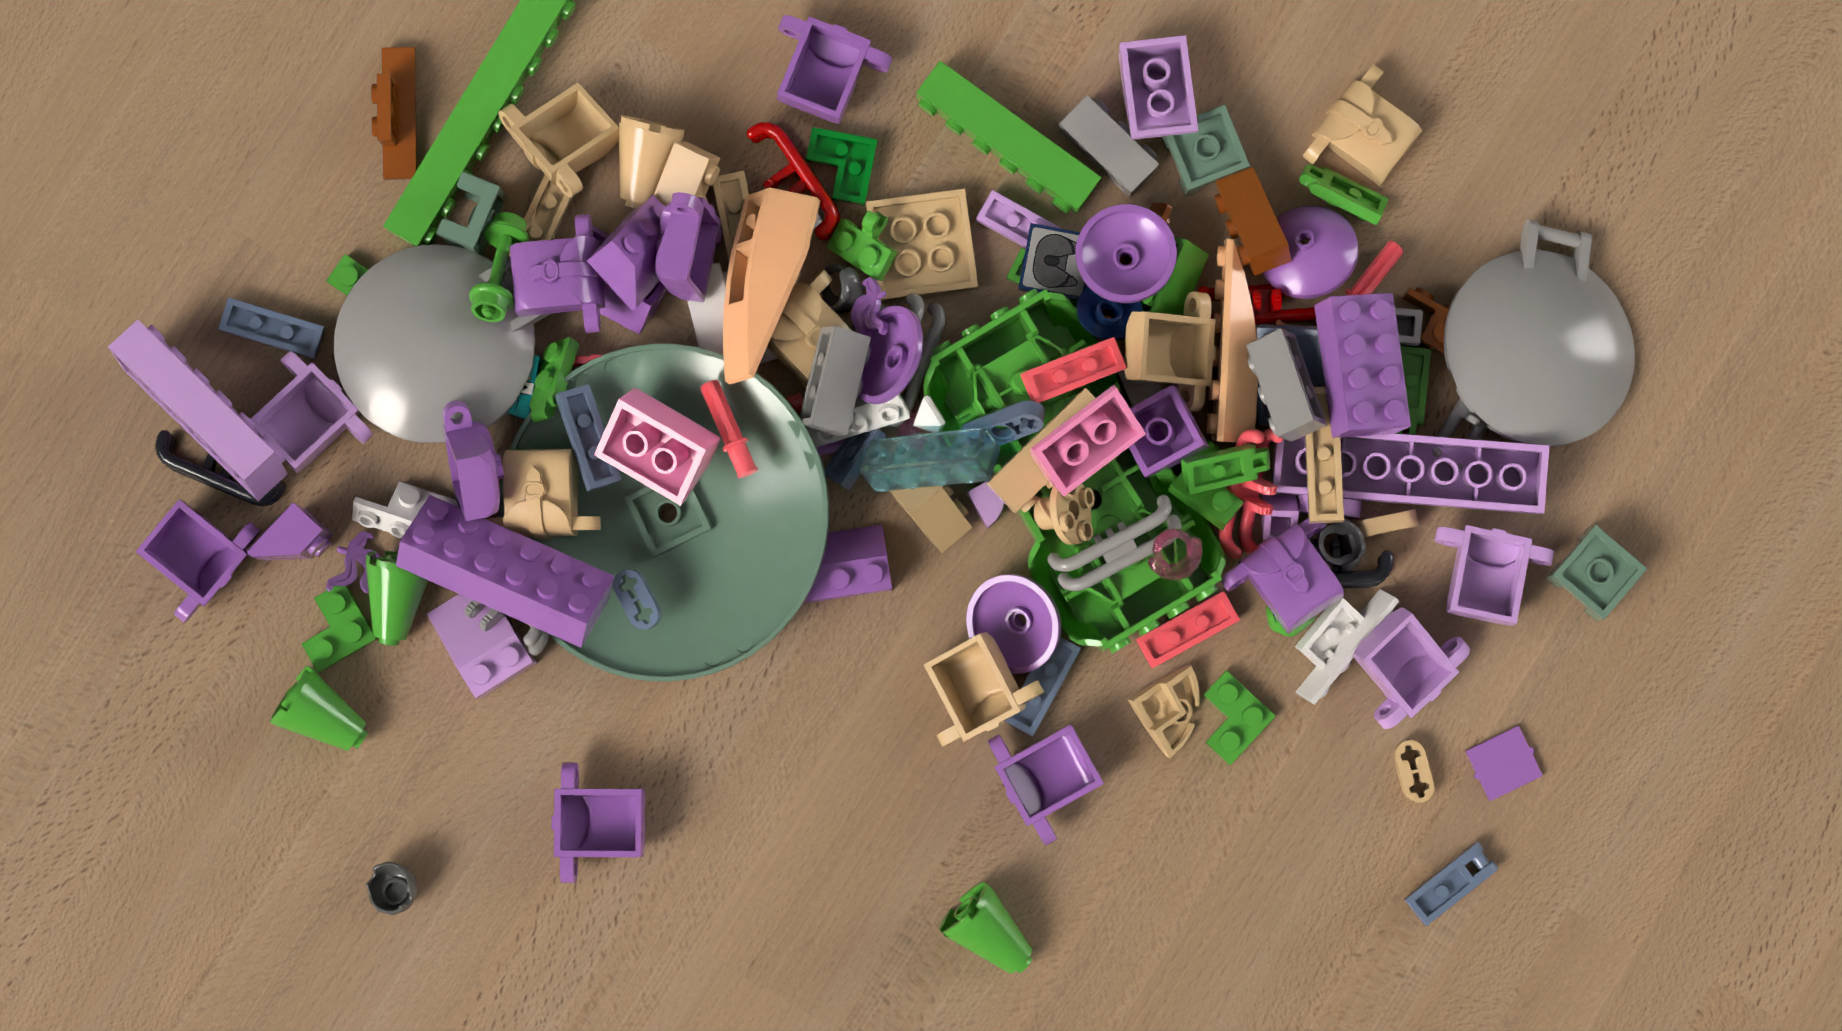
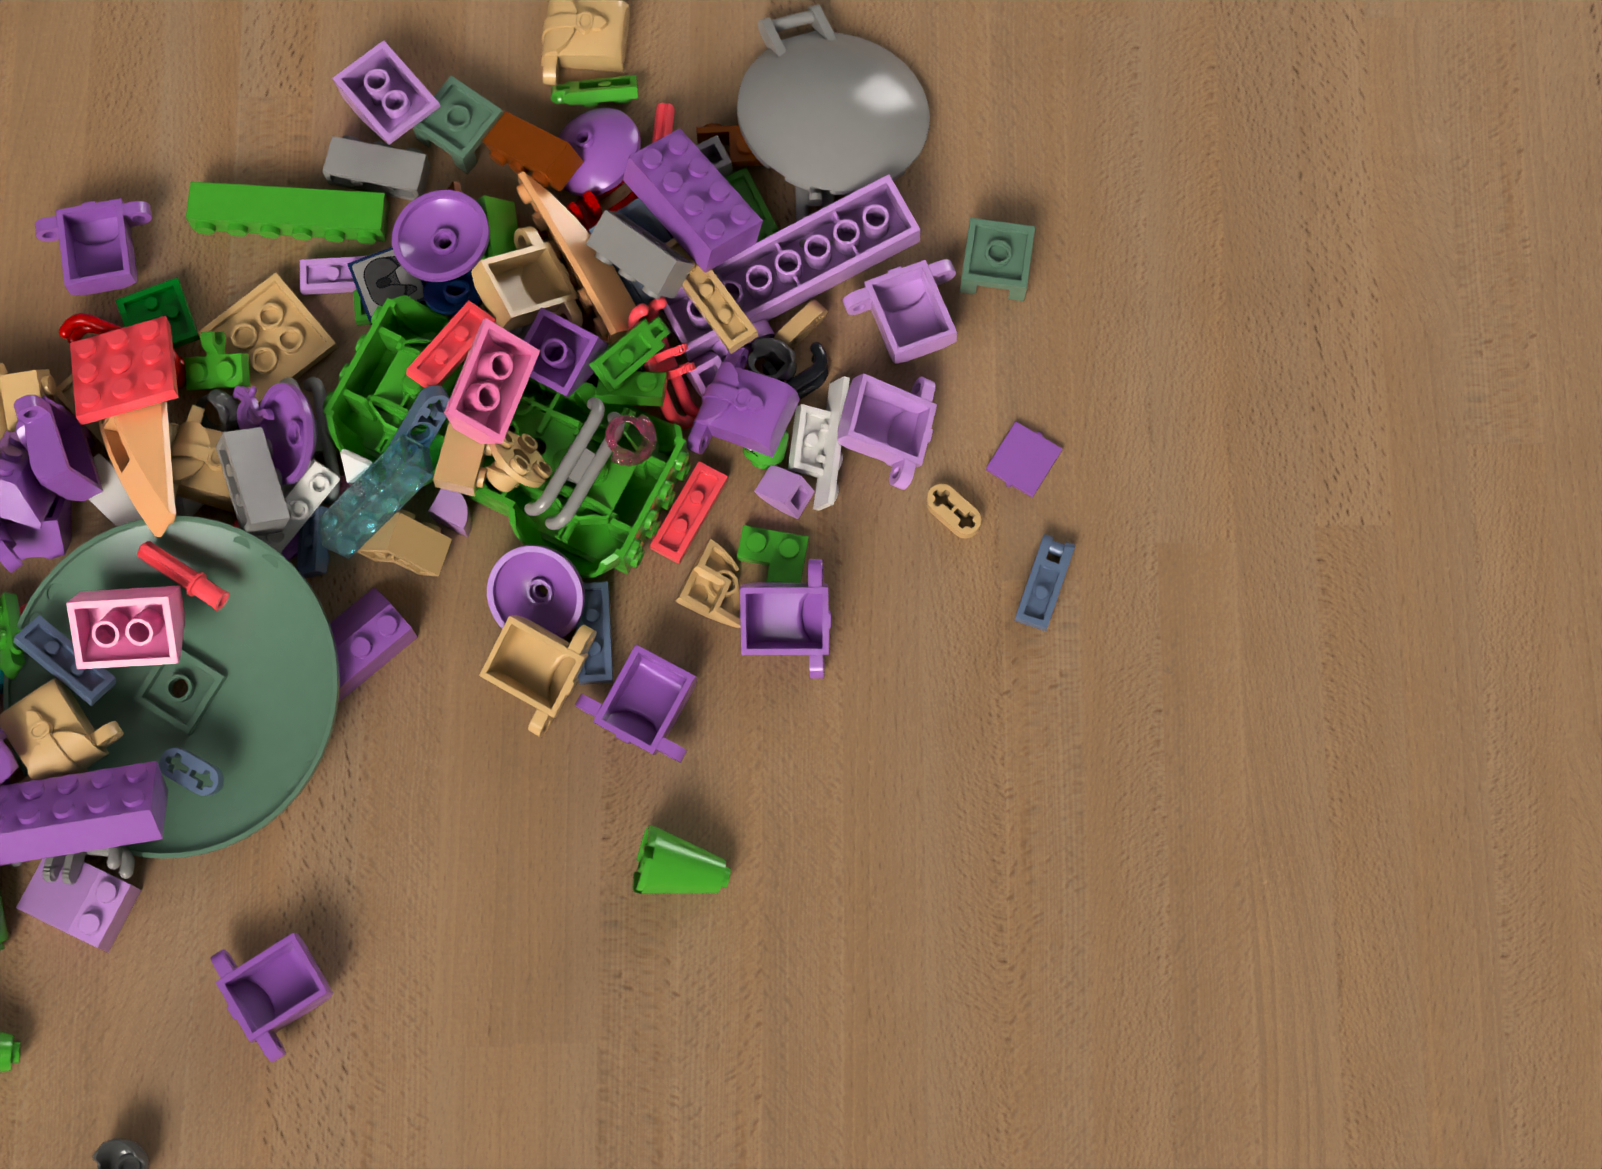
camera: 30 degrees left, 10 degrees down
(783, 209) = (123, 370): none -> coral plate
(1212, 780) = (788, 618): none -> medium lavender piece
(1280, 663) = (785, 491): none -> lavender brick

